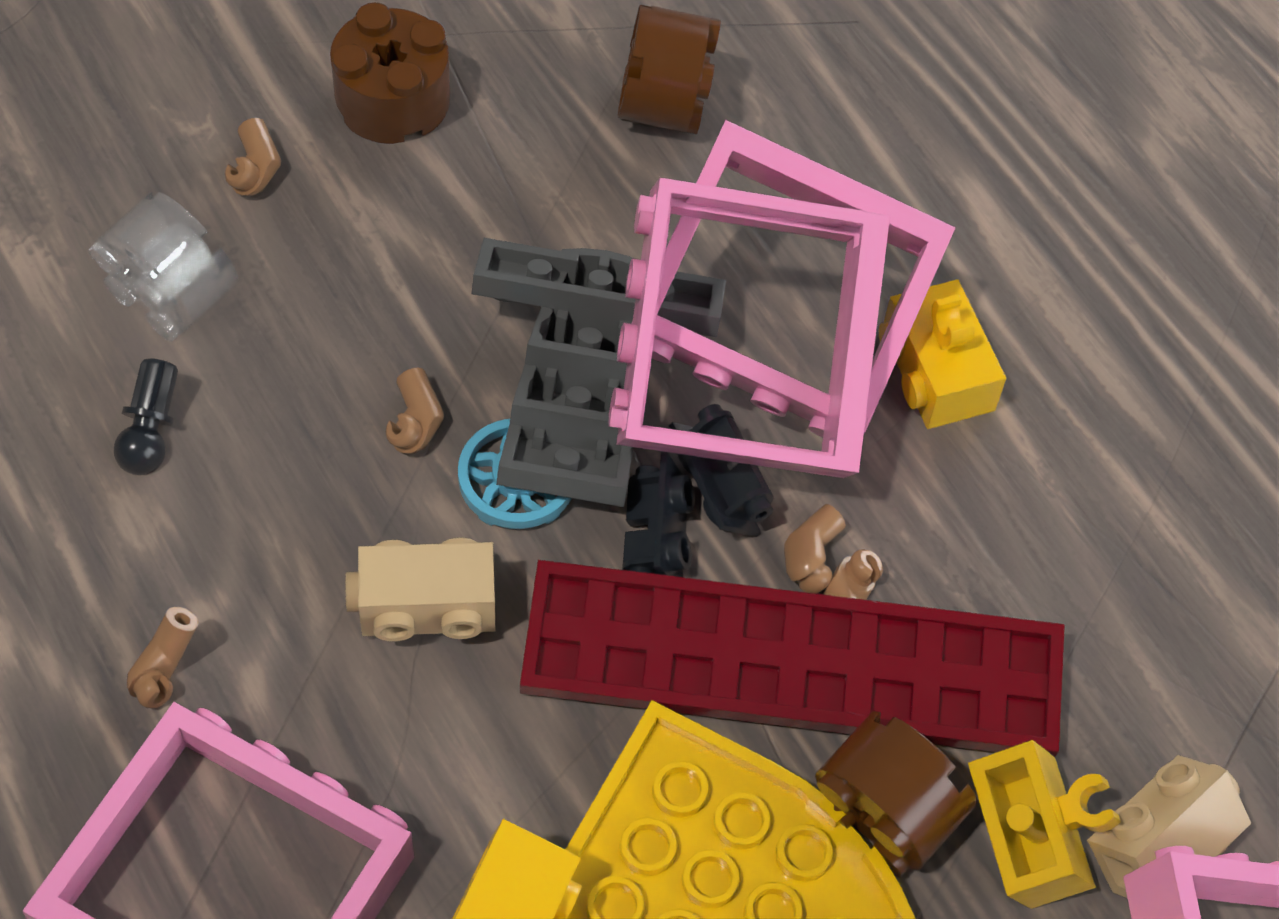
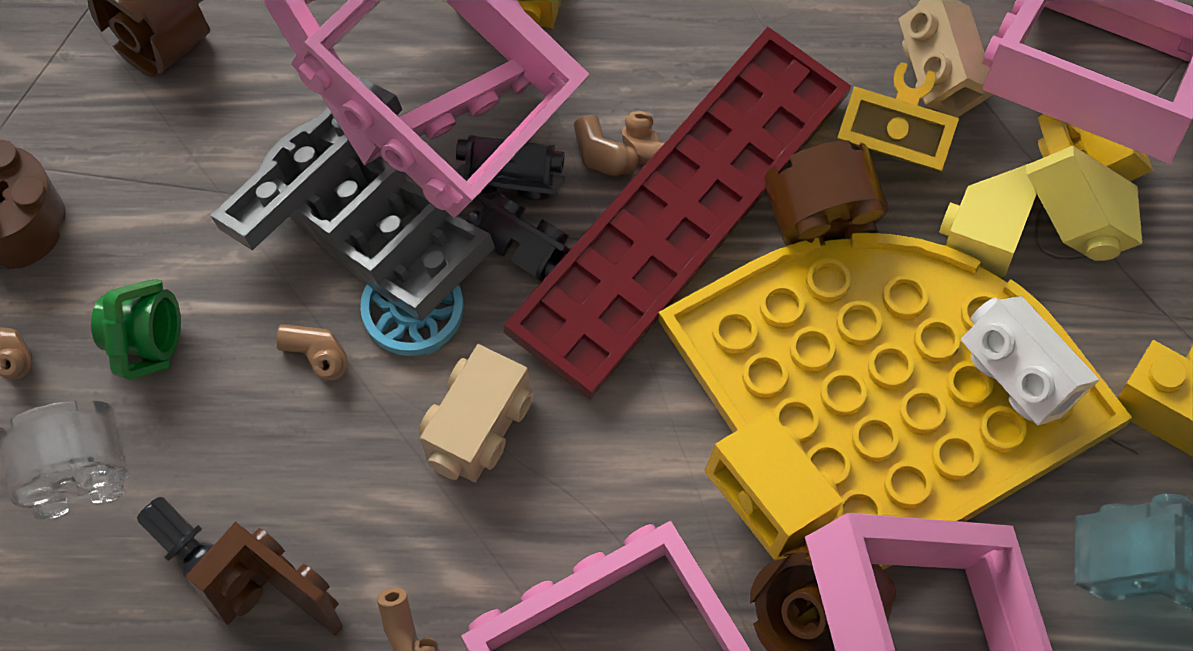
camera: 50 degrees left, 5 degrees up
(131, 477) = (242, 562): none -> reddish brown bracket
(342, 251) = (137, 322): none -> green piece

